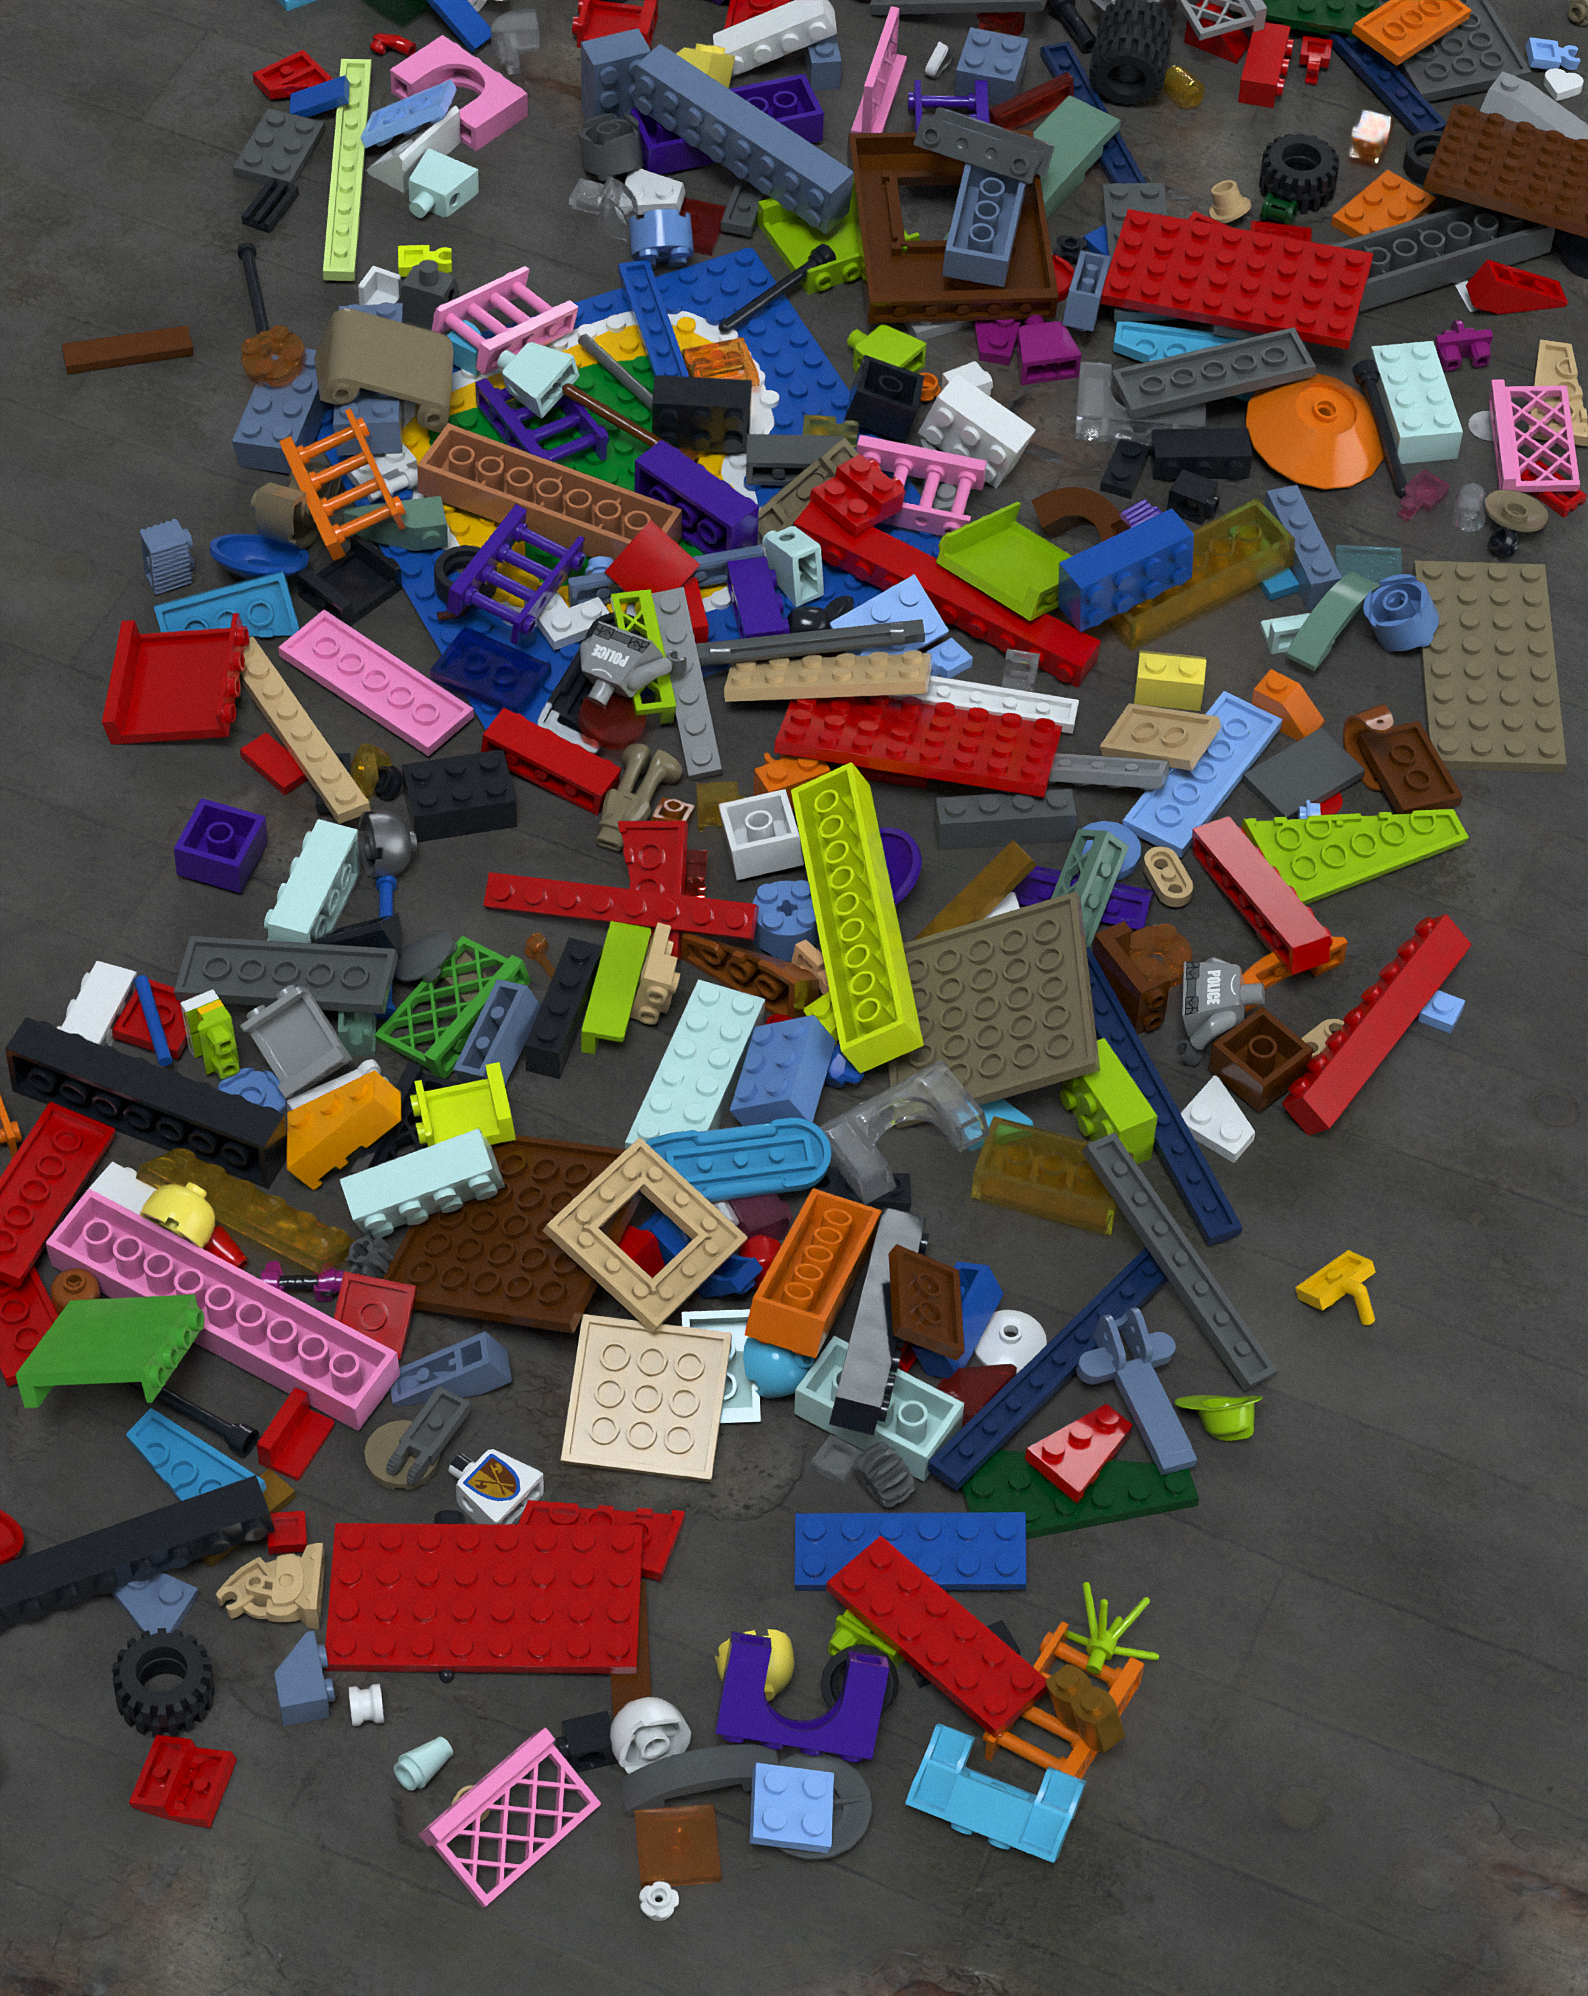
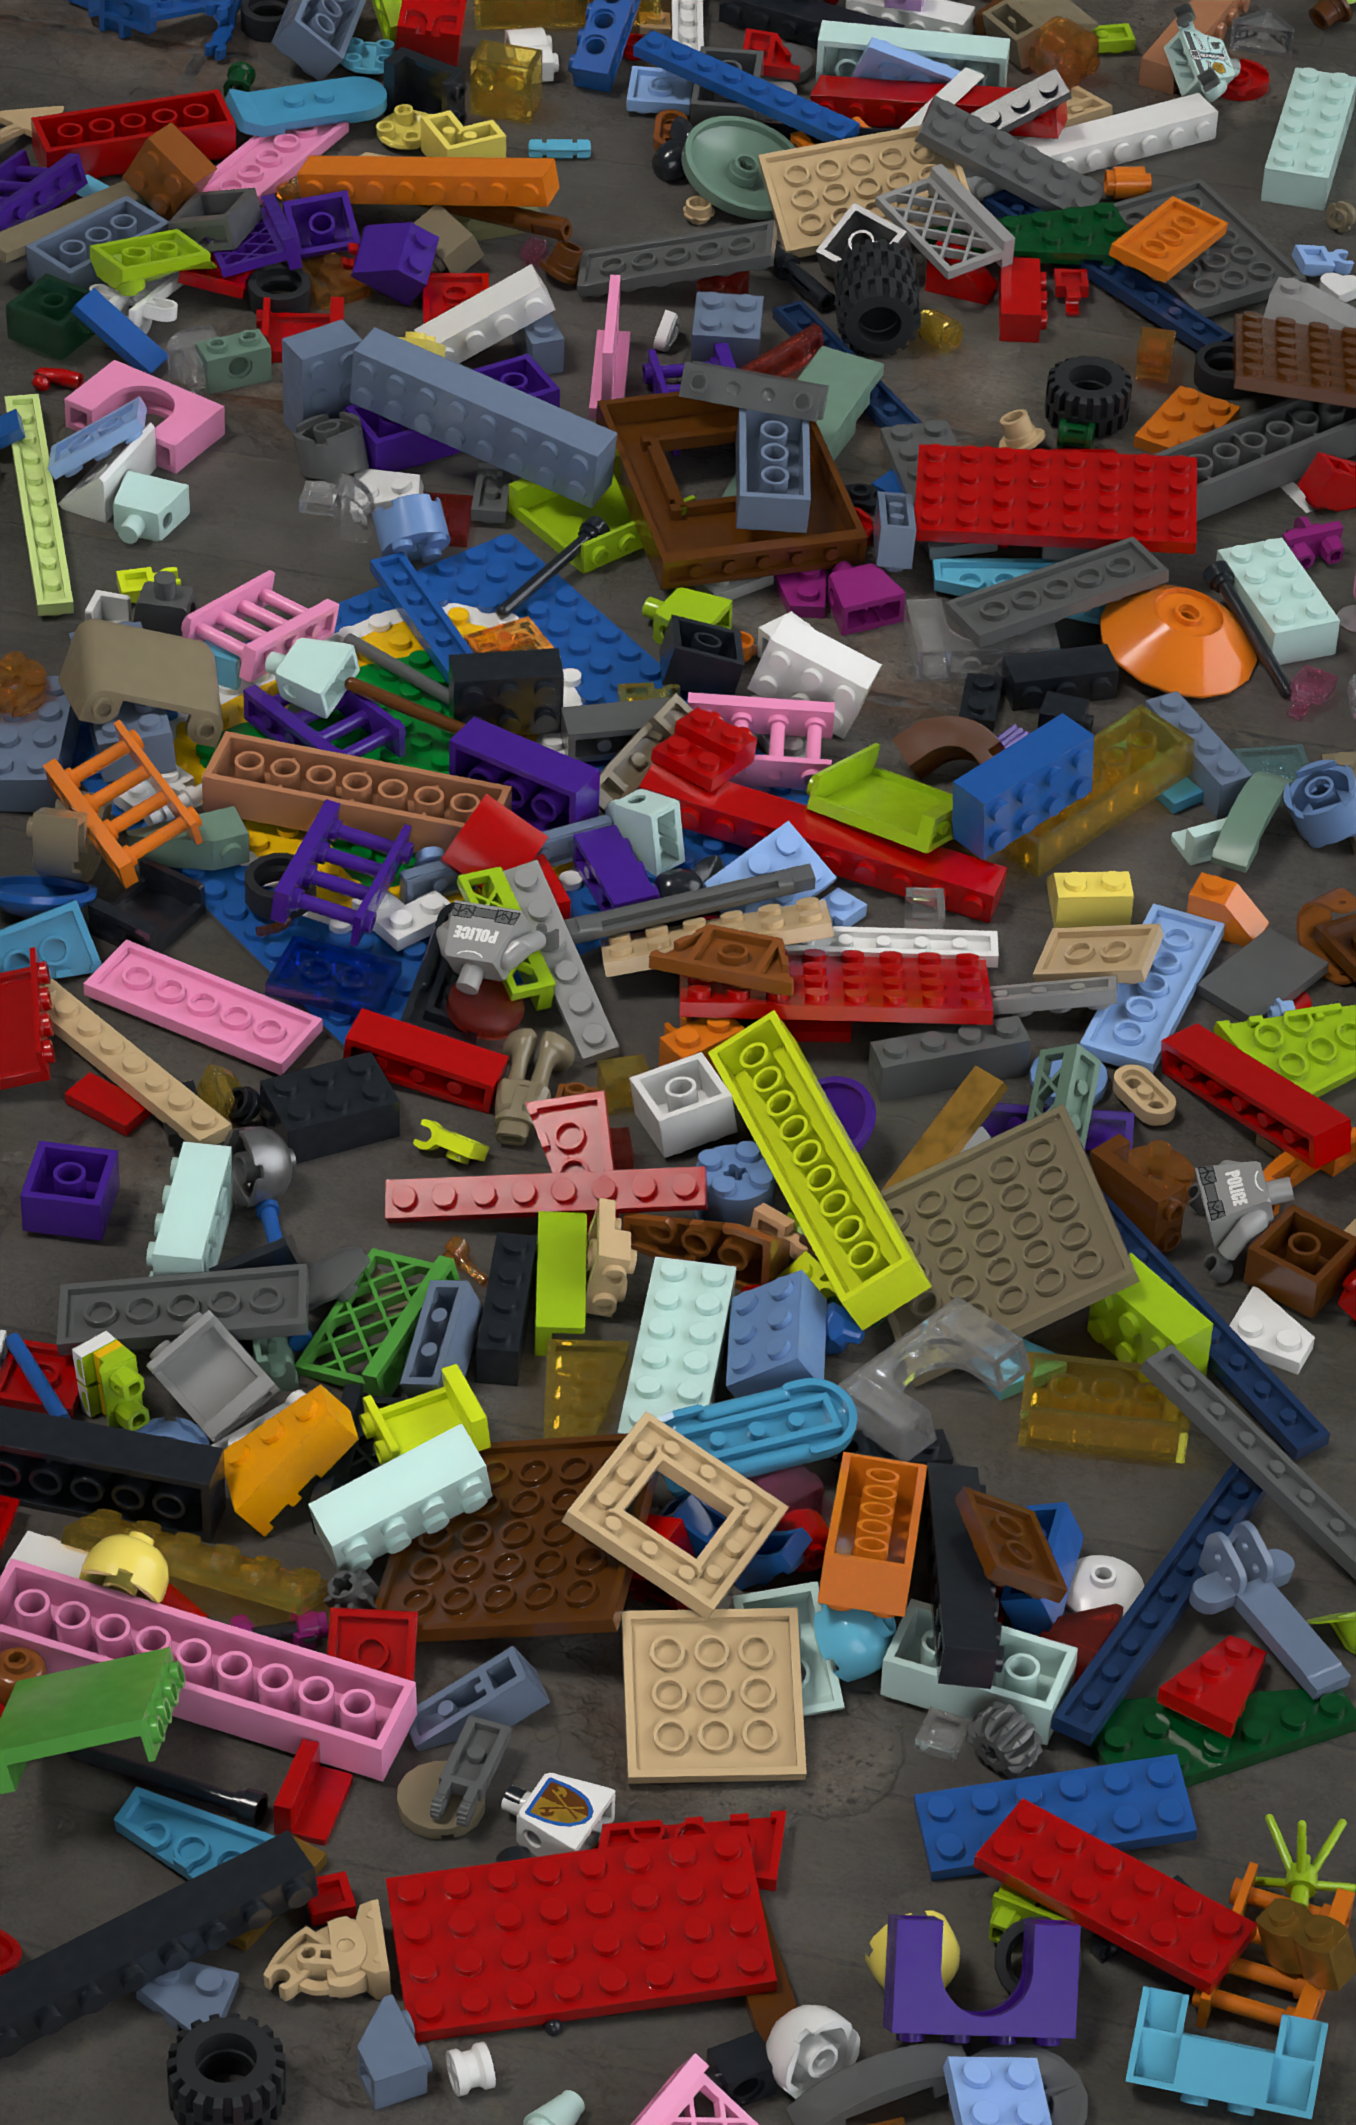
camera: 10 degrees left, 10 degrees down
(549, 46) = (235, 360): none -> sand green brick
(562, 845) = (459, 1147): none -> neon yellow plate
(609, 1091) = (581, 1385): none -> clear yellow wing
(827, 705) = (730, 958): none -> dark orange wing

